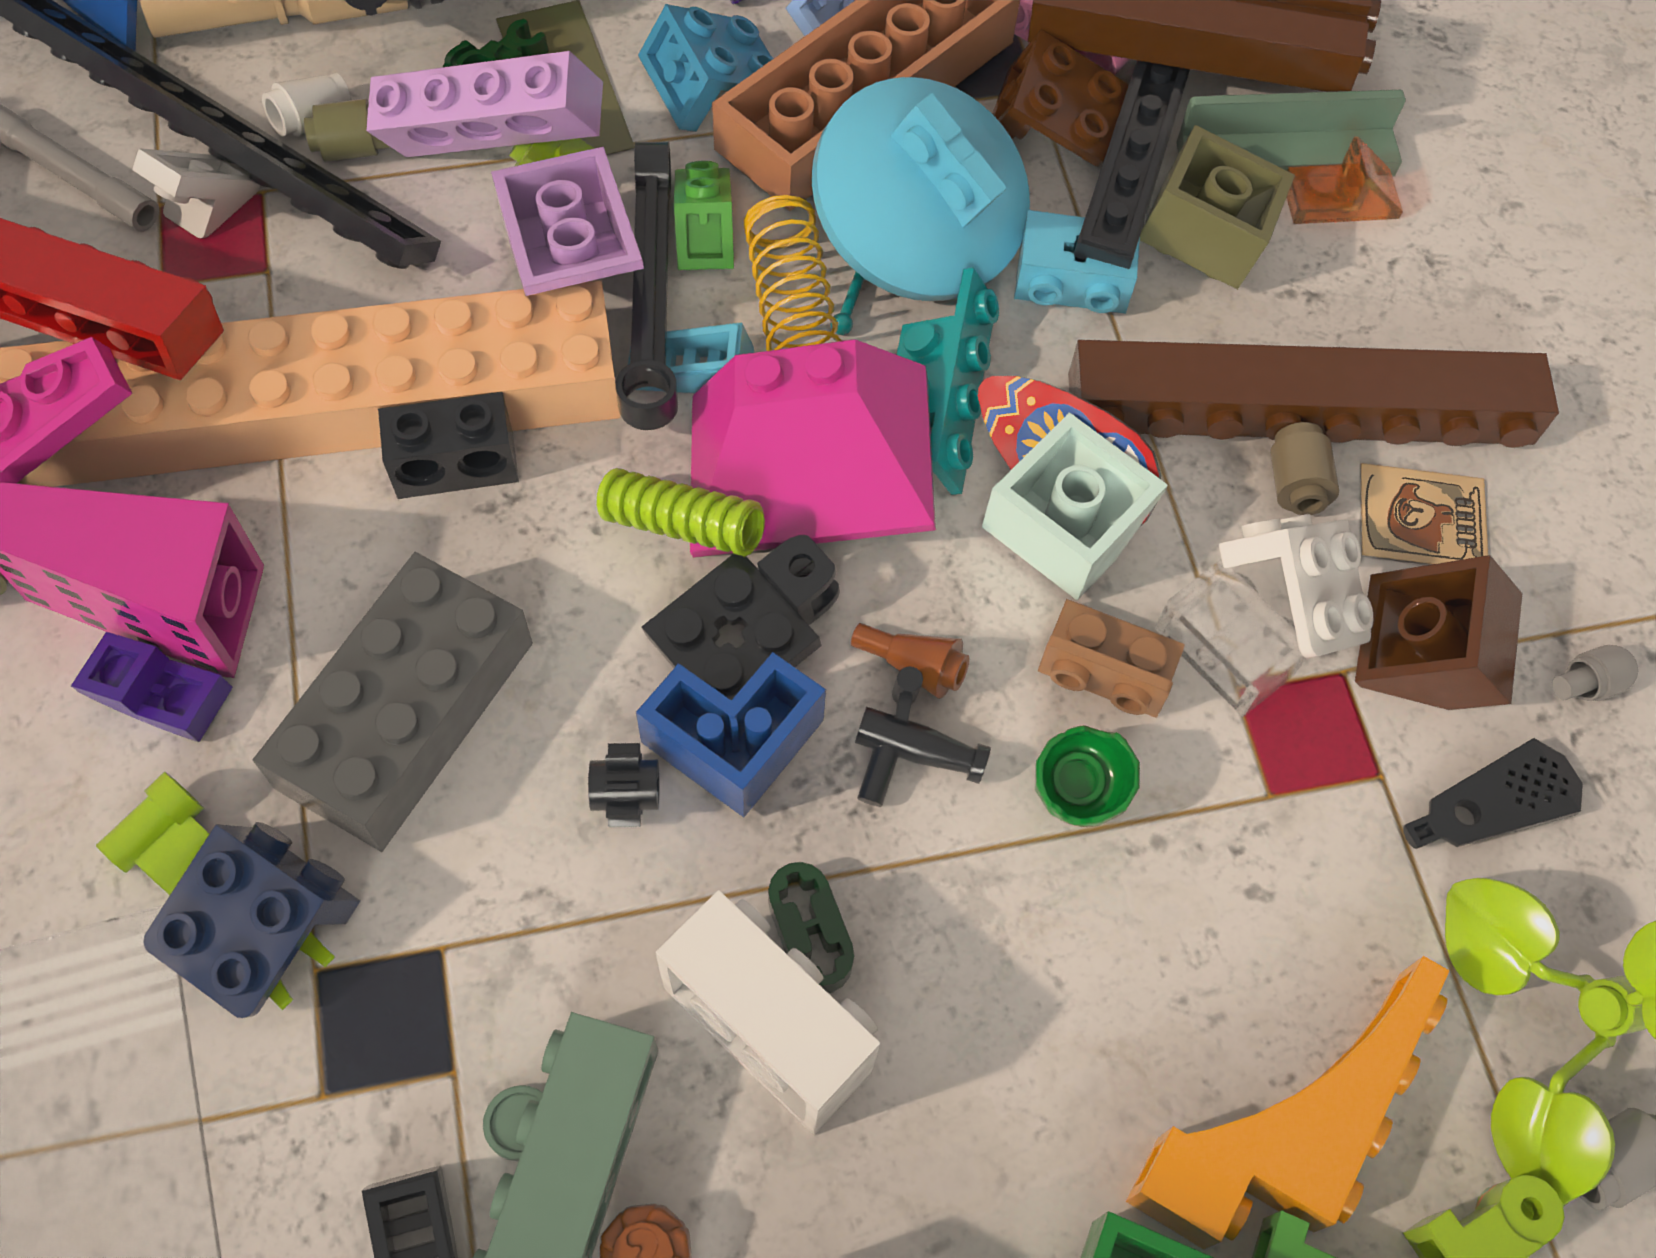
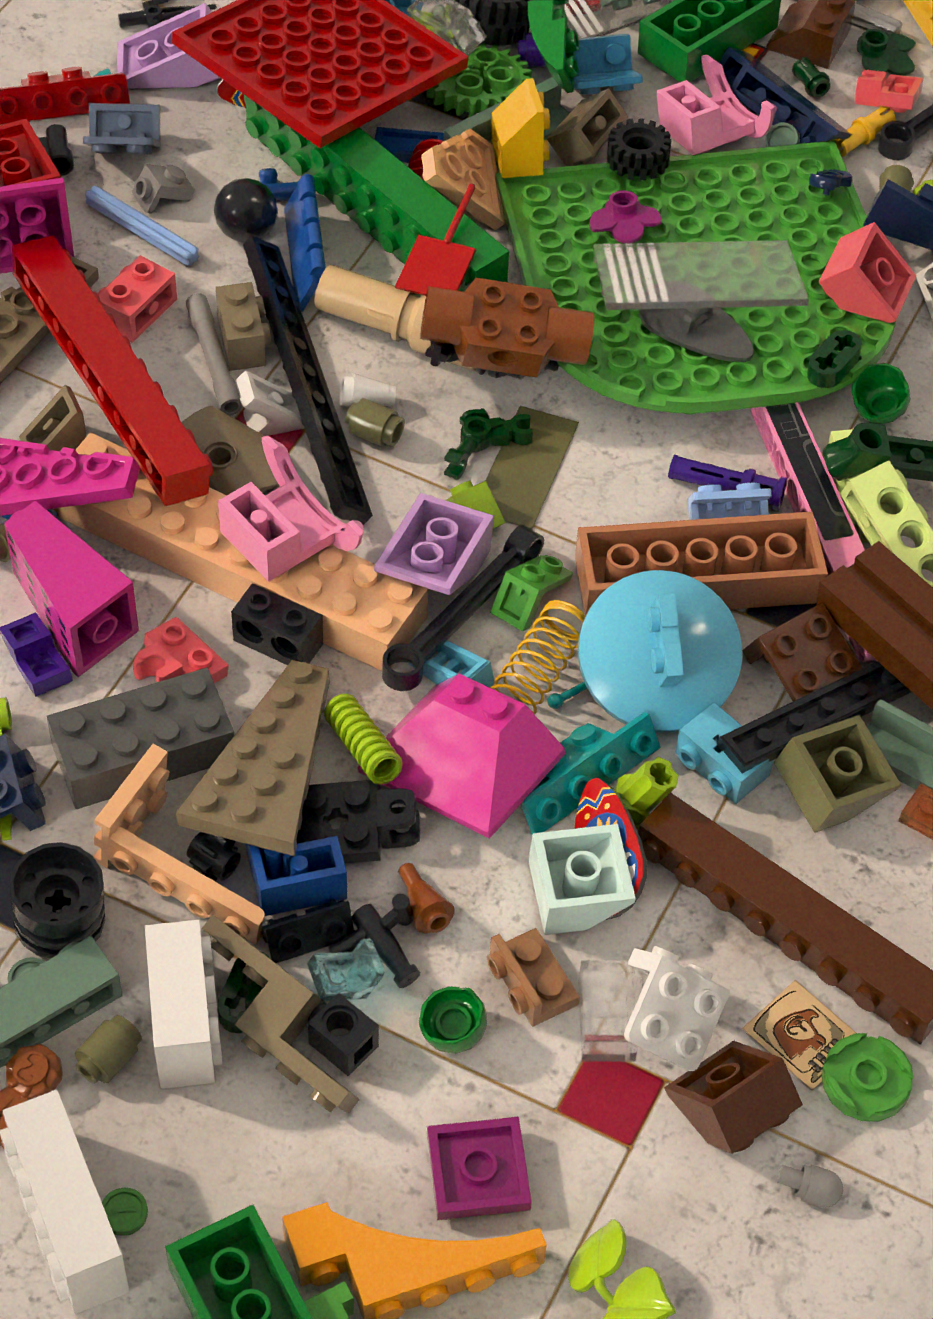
camera: 40 degrees right, 10 degrees down
(74, 106) = (241, 325): none -> dark tan brick
(237, 266) = (233, 450): none -> dark tan panel
(346, 564) = (176, 651): none -> coral plate
(361, 308) = (285, 524): none -> bright pink piece
(475, 957) = (52, 880): none -> black wheel
(486, 105) = (448, 454): lavender brick -> none
(589, 855) = (121, 846): none -> light nougat bracket
(606, 641) = (265, 771): none -> dark tan wing
(697, 56) = (614, 496): dark azure bracket -> none
(716, 1144) = (107, 1050): none -> olive brick
(832, 768) = (306, 933): none -> black hinge
(896, 933) = (278, 1017): none -> dark tan bracket
(915, 810) = (347, 973): none -> clear light blue bracket
(998, 872) = (345, 1050): none -> black brick
(1054, 347) = (646, 788): none -> lime piece
(1271, 935) = (478, 1168): none -> magenta plate
(1304, 469) = (745, 954): dark tan brick -> none
(1495, 804) = (678, 1201): black piece -> none
(1529, 516) = (867, 1077): none -> bright green tile

